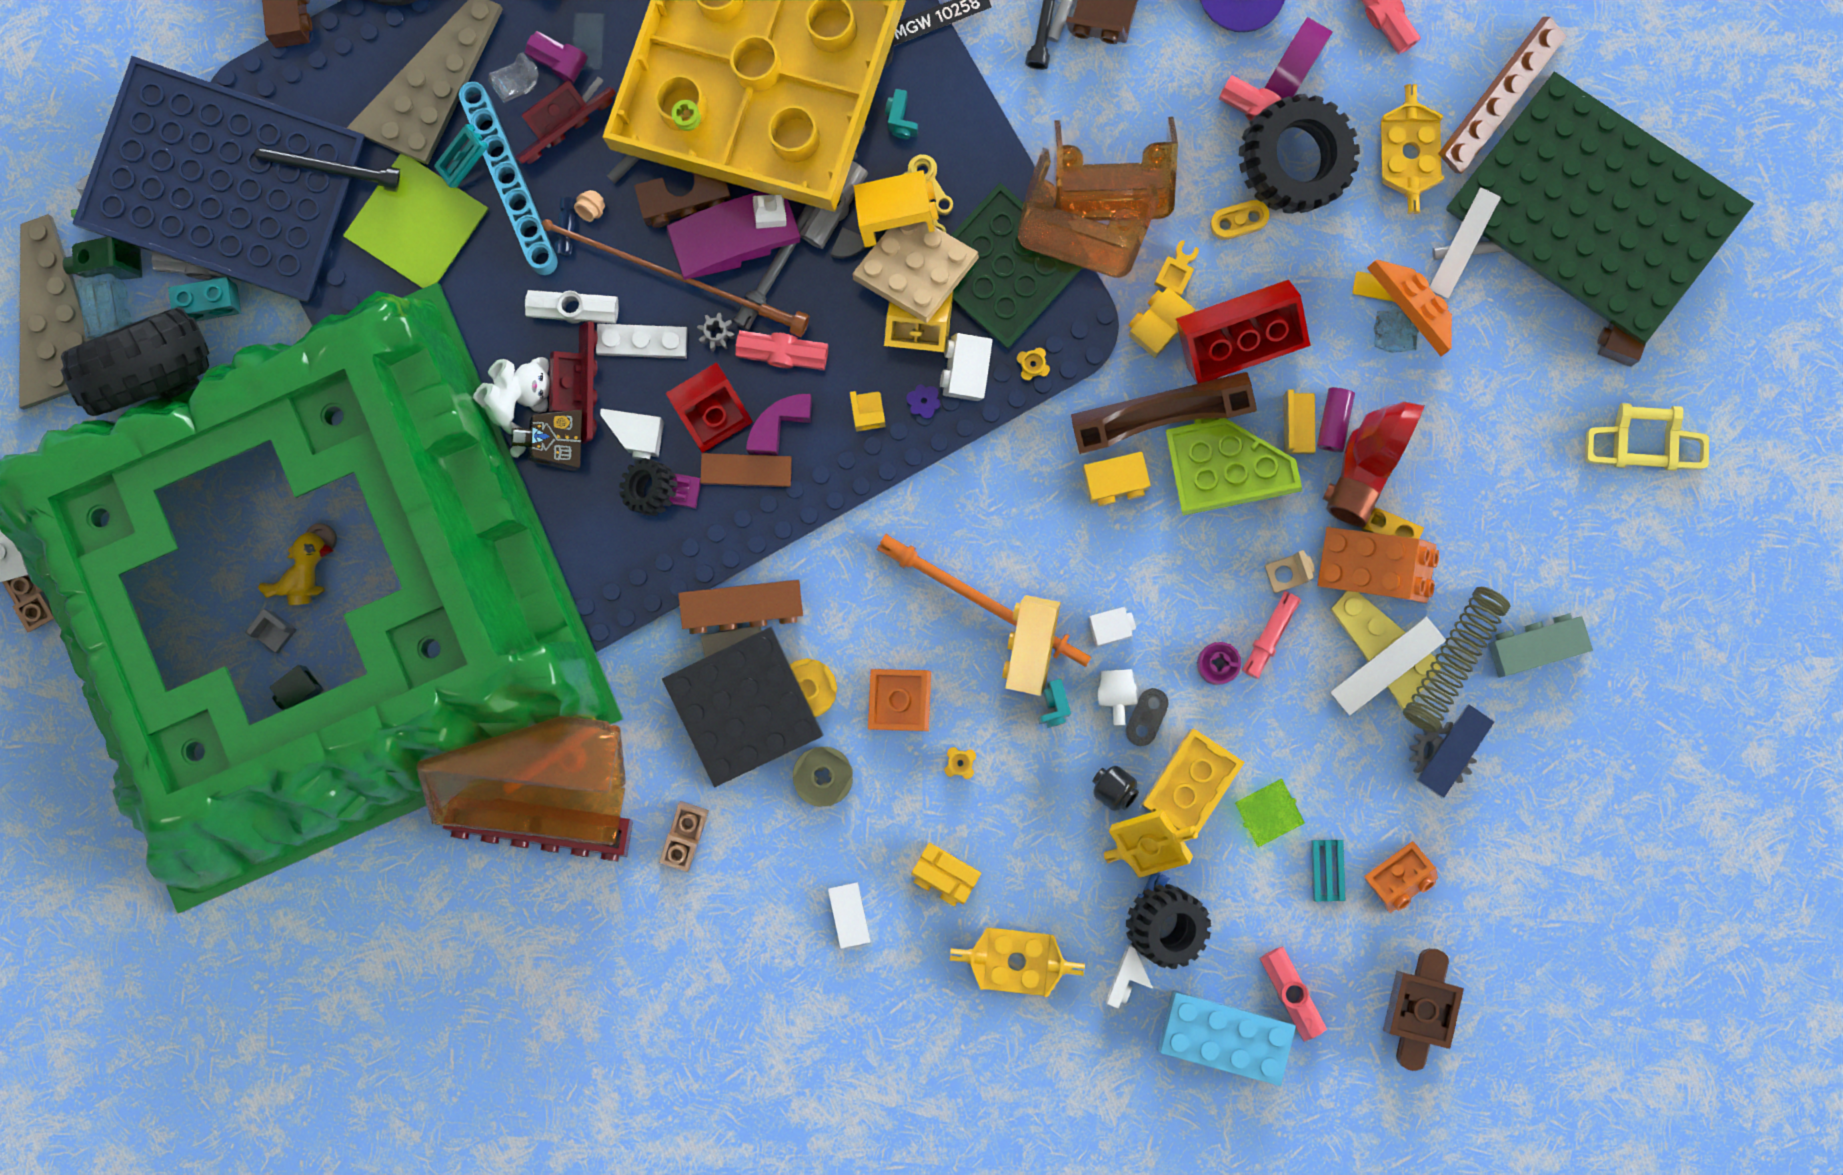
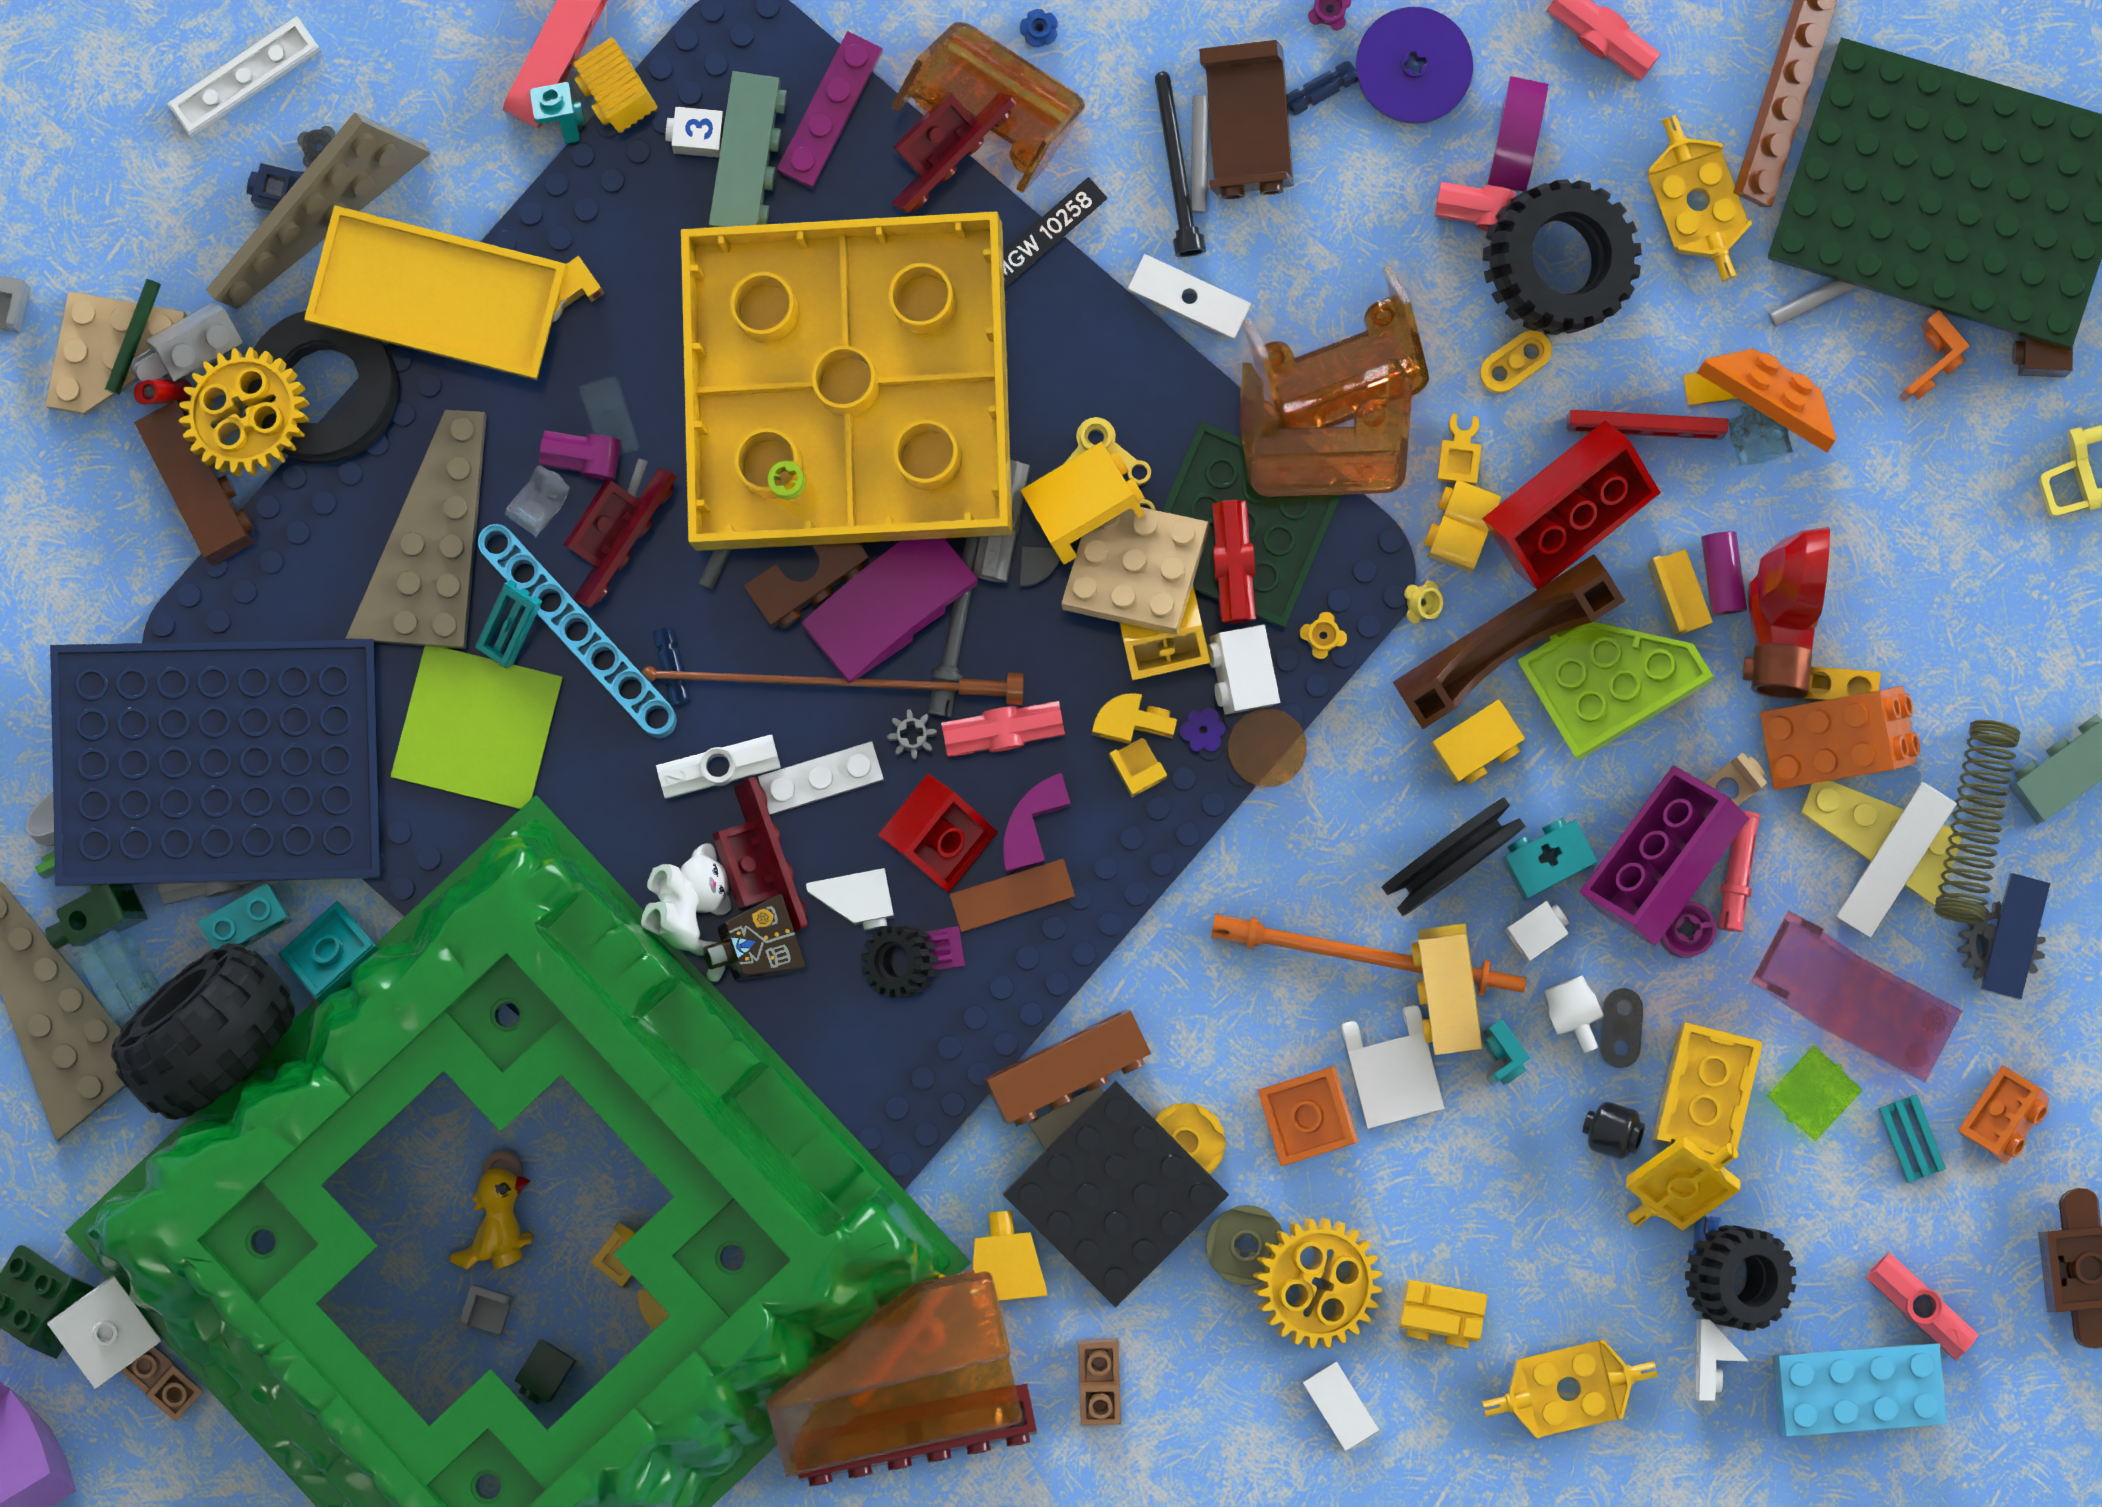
camera: 30 degrees left, 0 degrees up
(263, 329) = (328, 952): none -> teal plate
(387, 178) = (422, 685): black piece -> none
(589, 205) = (693, 630): light nougat plate -> none
(648, 728) = (1009, 1259): none -> yellow torso
(769, 211) = (927, 561): white tile -> none
(870, 370) = (1122, 716): none -> yellow brick
(884, 839) = (1285, 1269): none -> yellow gear
(895, 110) = (1036, 374): teal bracket -> none
(964, 429) = (1267, 748): none -> clear orange tile
(964, 770) = (1417, 1158): yellow plate -> none
(972, 694) = (1394, 1076): none -> white flag
(986, 287) = (1233, 561): none -> red piece
(1011, 83) = (1166, 286): none -> white tile
(1067, 549) = (1453, 856): none -> black tyre
(1120, 365) = (1431, 604): none -> light yellow plate
(1154, 584) = (1572, 851): none -> teal brick
(1221, 603) = (1664, 855): none -> magenta brick
(1321, 296) = (1649, 424): none -> red tile
(1322, 754) = (1855, 998): none -> clear pink windscreen
(1464, 242) = (1805, 295): white sticker -> none
(1551, 305) = (1940, 337): none -> orange bracket

